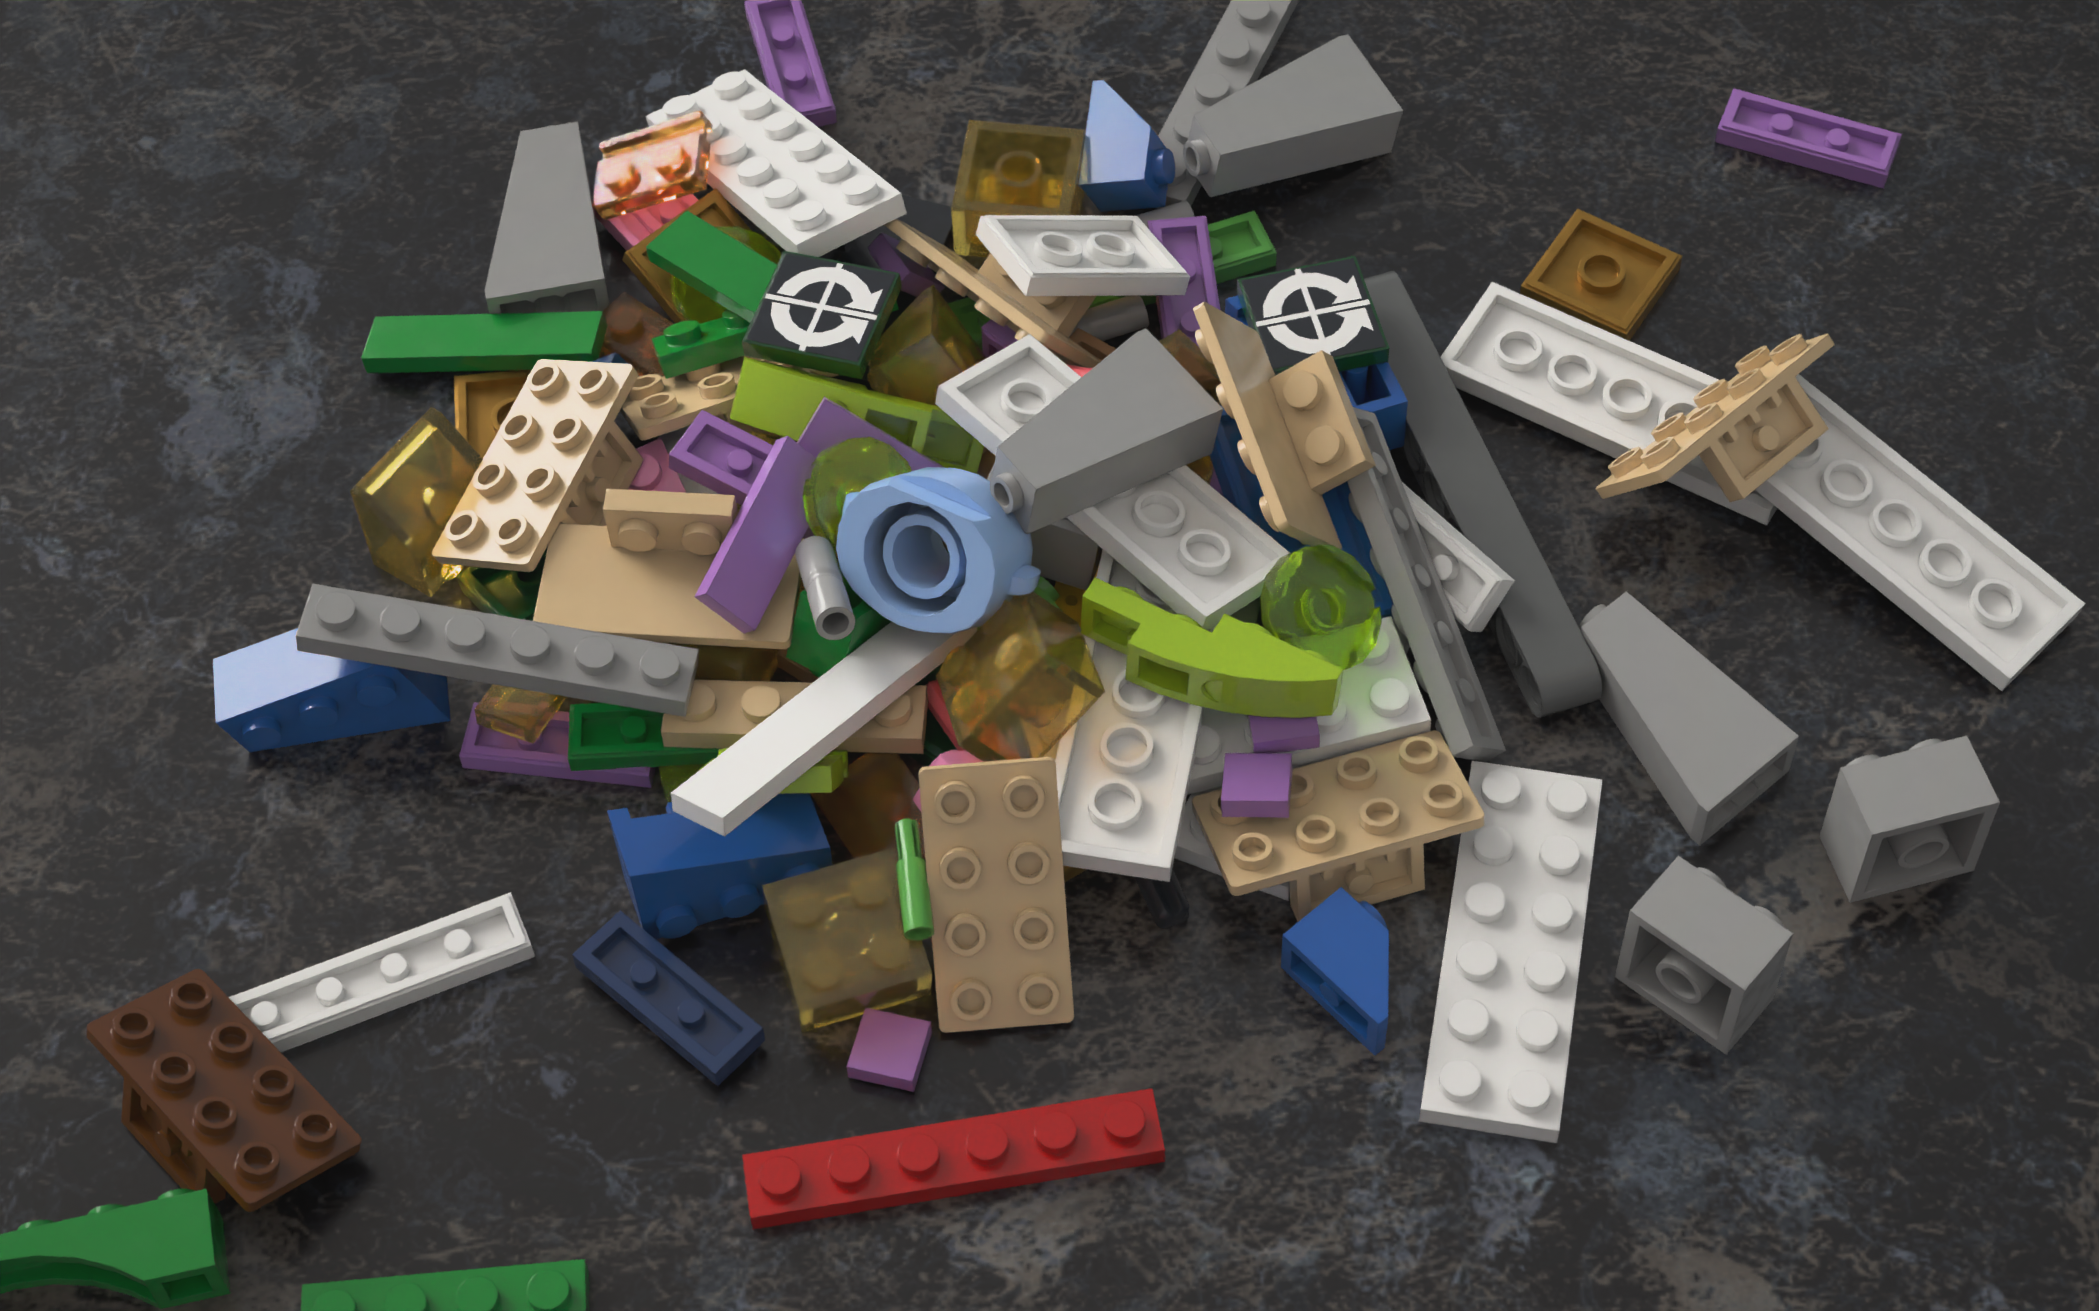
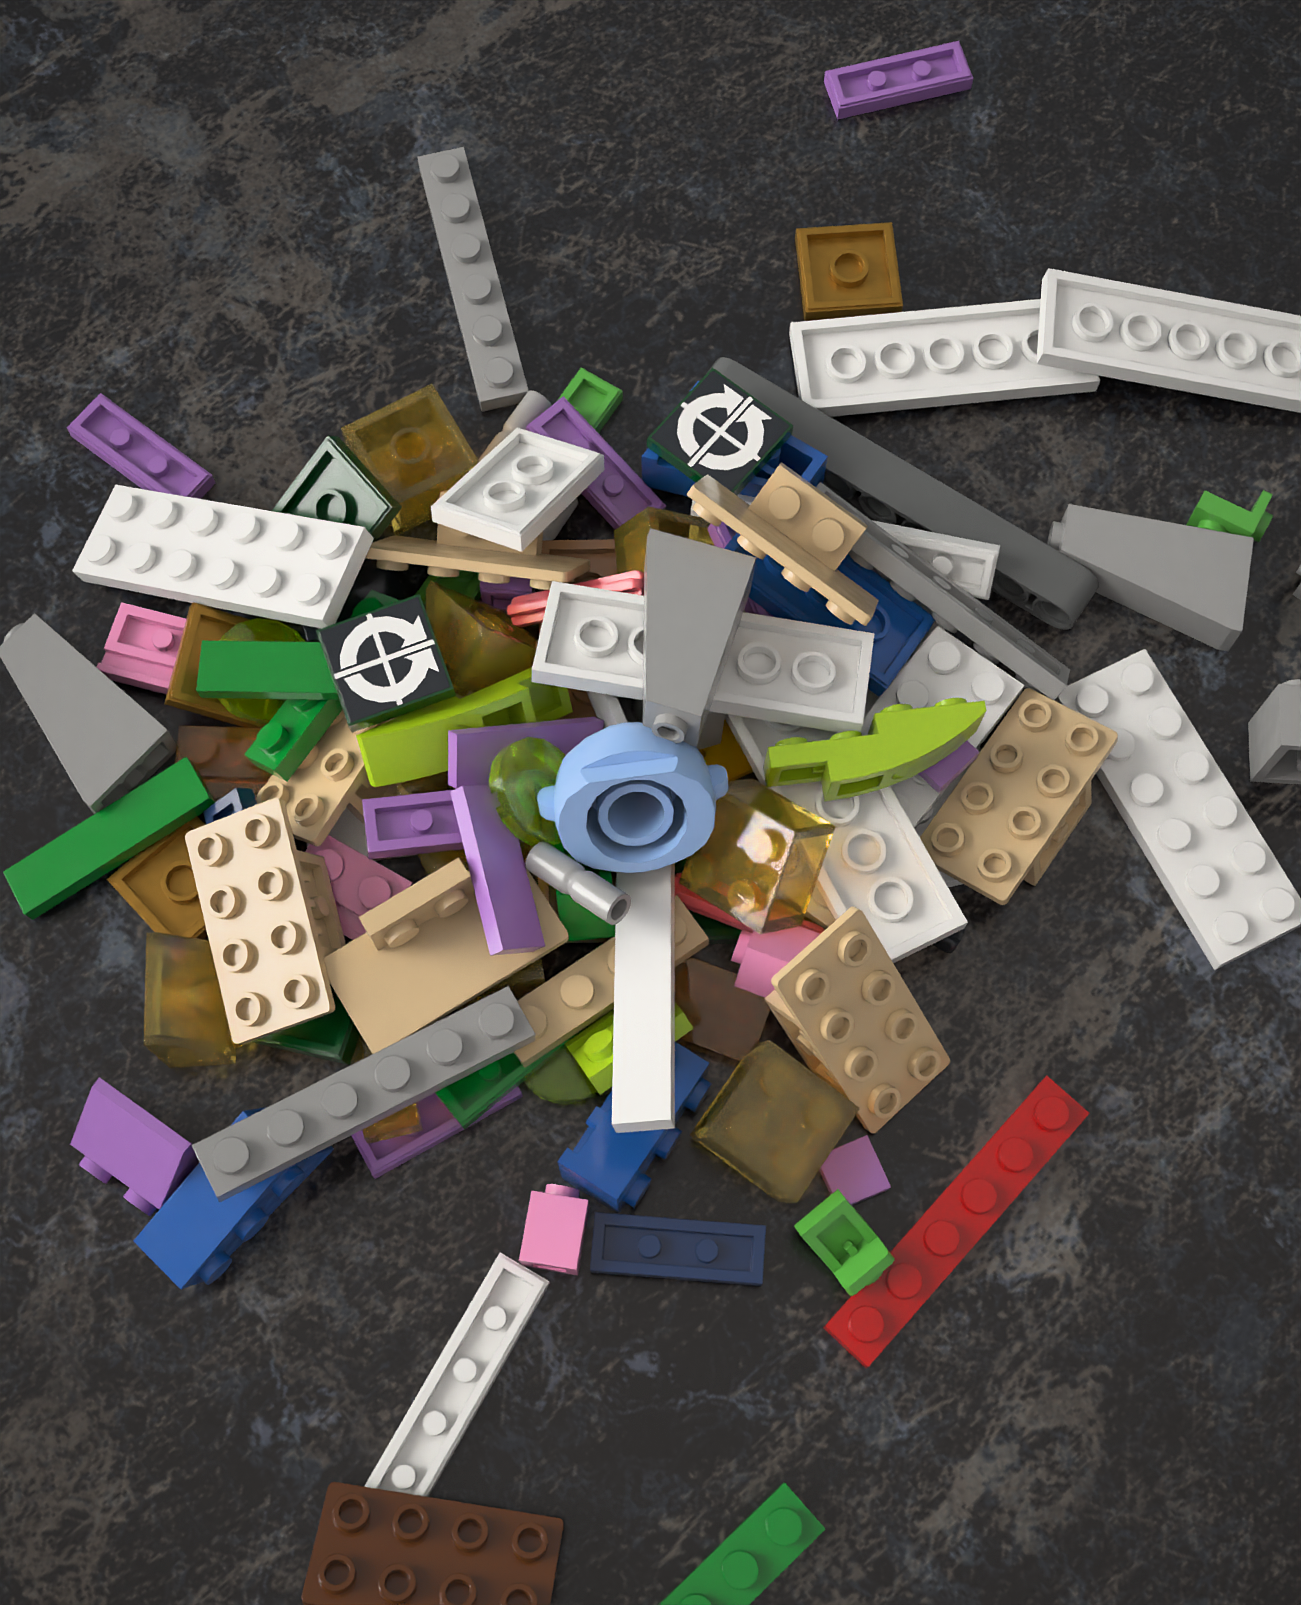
camera: 40 degrees left, 15 degrees up
(273, 573) = (133, 1147): none -> medium lavender slope
(569, 902) = (555, 1230): none -> bright pink brick
(652, 165) = (128, 614): clear orange plate -> none
(822, 1089) = (845, 1243): none -> bright green bracket
(912, 275) = (385, 581): medium lavender tile -> none
(912, 882) = (805, 1055): bright green pin -> none
(926, 173) = (339, 490): none -> tile
(1122, 156) = (468, 382): slope -> none
(1256, 785) = (960, 815): medium lavender tile -> none
(1294, 122) = (563, 280): light grey slope -> none
(1322, 604) = (912, 658): clear neon green tile -> none
(1344, 964) = (1100, 897): blue slope -> none
(1738, 428) = (1048, 335): tan bracket -> none
(1821, 733) = (1224, 516): none -> bright green bracket

